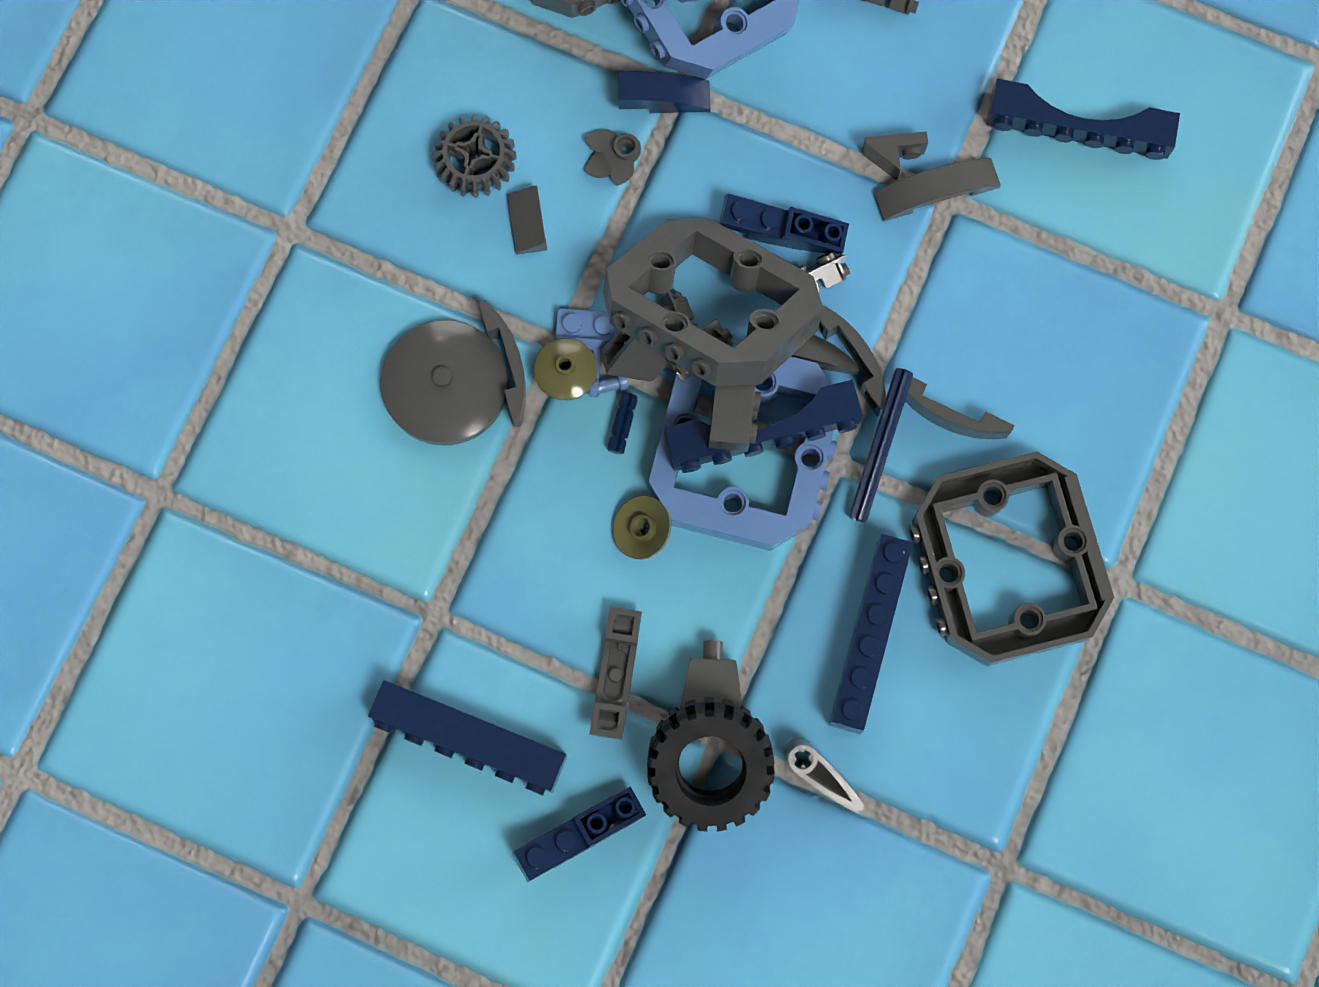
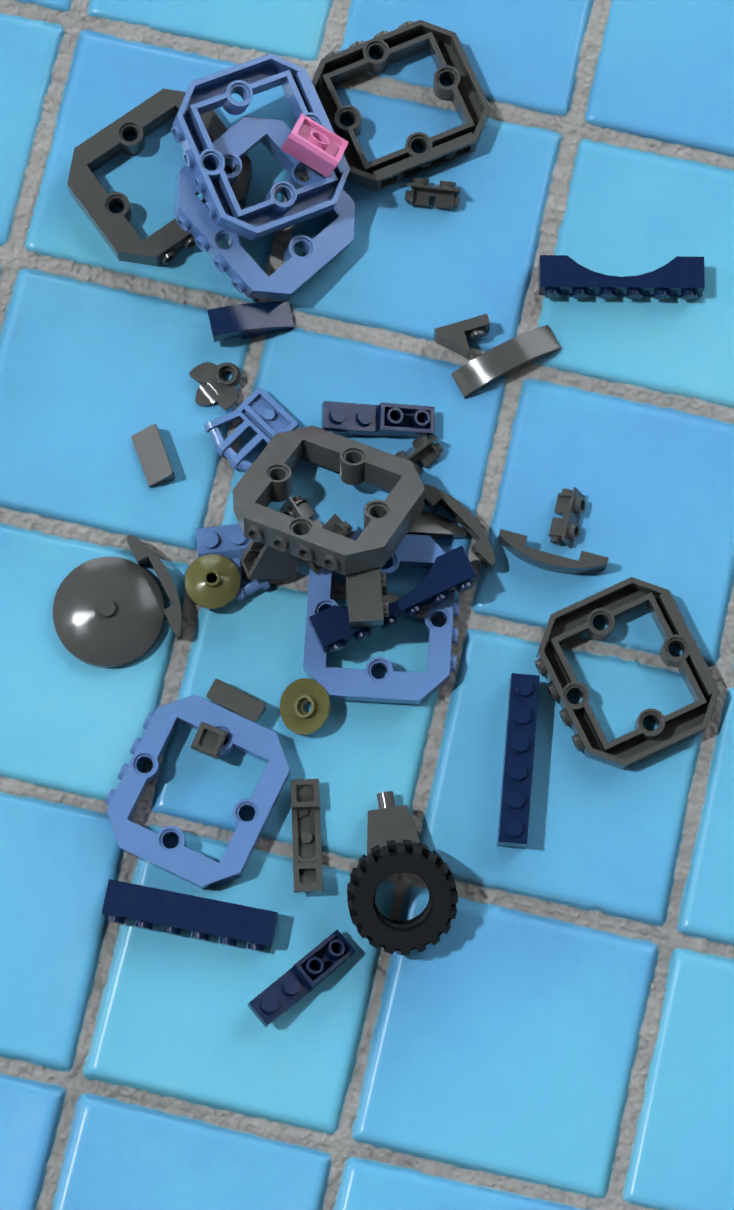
camera: 10 degrees left, 0 degrees up
(452, 146) = (84, 405): dark grey gear -> none
(474, 523) = (182, 861): none -> medium blue panel
(526, 545) = (209, 740): none -> dark grey tile
(566, 506) = (236, 700): none -> dark grey slope
(622, 423) = (270, 618): dark blue axle -> none
(652, 195) = (259, 414): none -> medium blue plate
(821, 774) = (498, 888): piece -> none
(881, 445) = (497, 596): dark blue axle -> none
(973, 385) = (571, 506): none -> dark grey hinge

